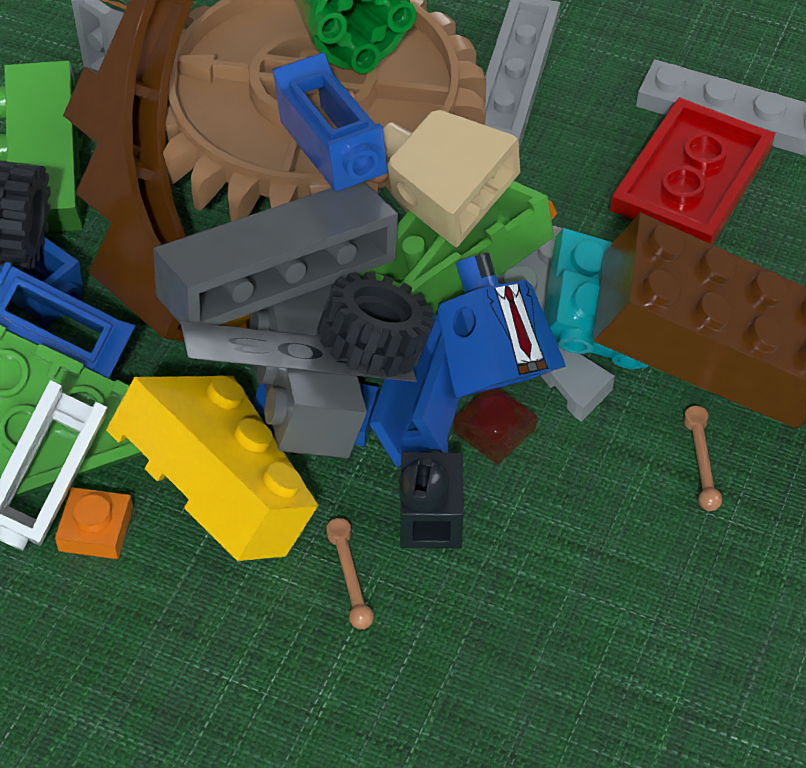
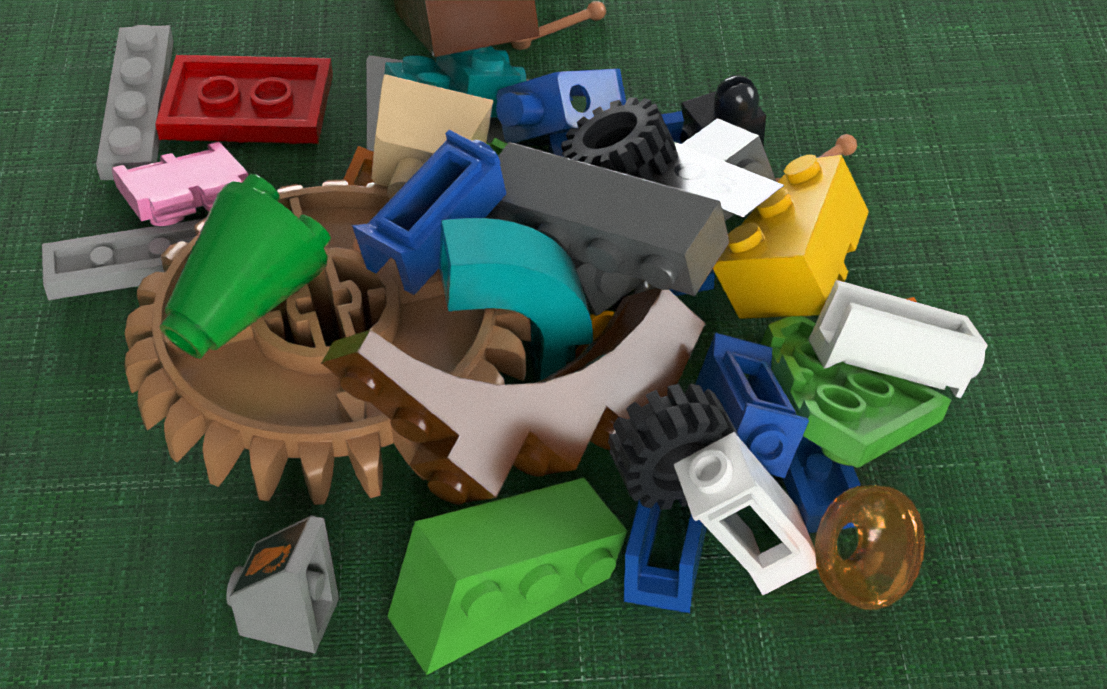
camera: 115 degrees left, 5 degrees down
(244, 157) = (521, 271): none -> teal arch
(579, 94) = (177, 185): none -> bright pink plate

